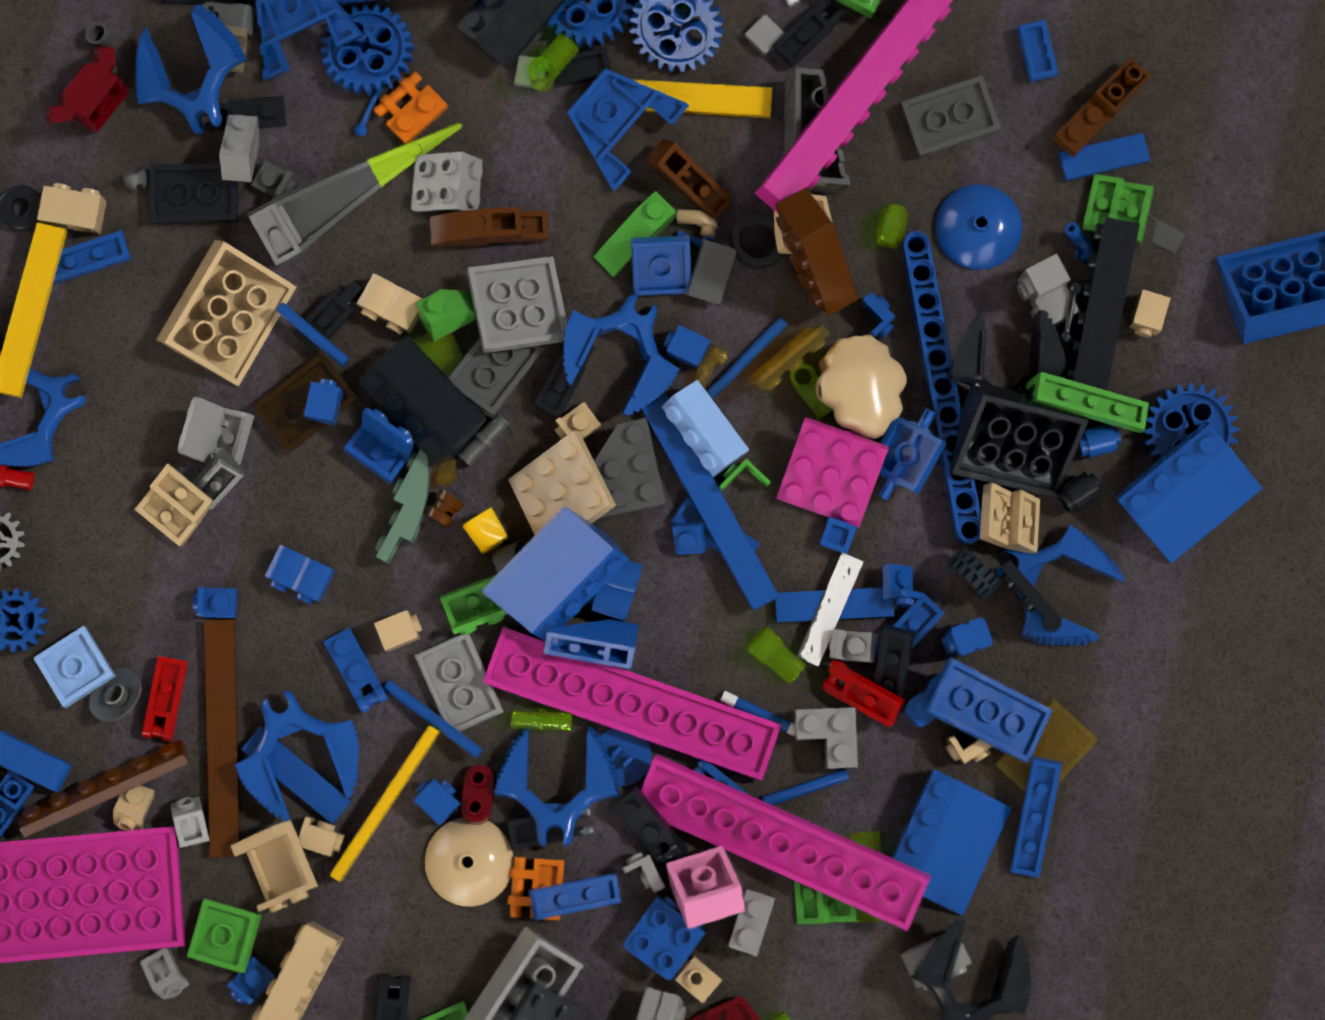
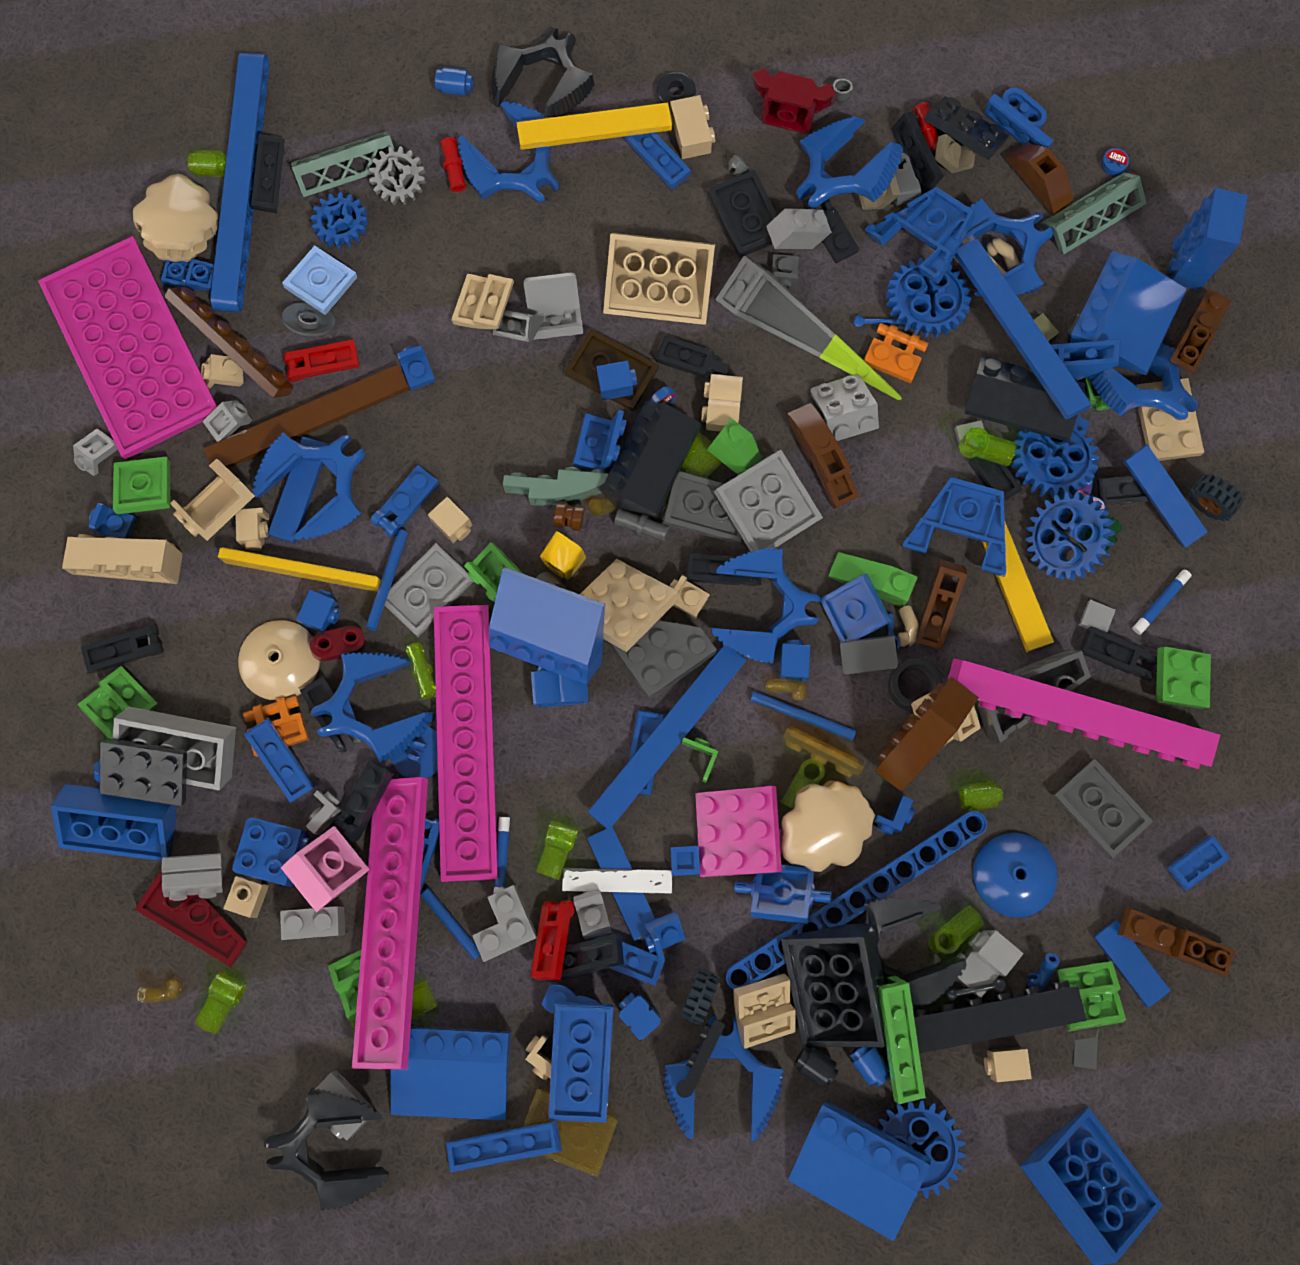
camera: 70 degrees right, 5 degrees down
(299, 574) = (465, 423): blue brick -> none
(312, 334) = (669, 350): blue bar -> none
(359, 362) = (664, 395): none -> blue tile
(596, 642) = (505, 689): blue slope -> none
(689, 538) = (629, 731): blue plate -> none
(705, 428) = (729, 705): light blue brick -> none
(1008, 305) = (957, 929): none -> clear neon green piece

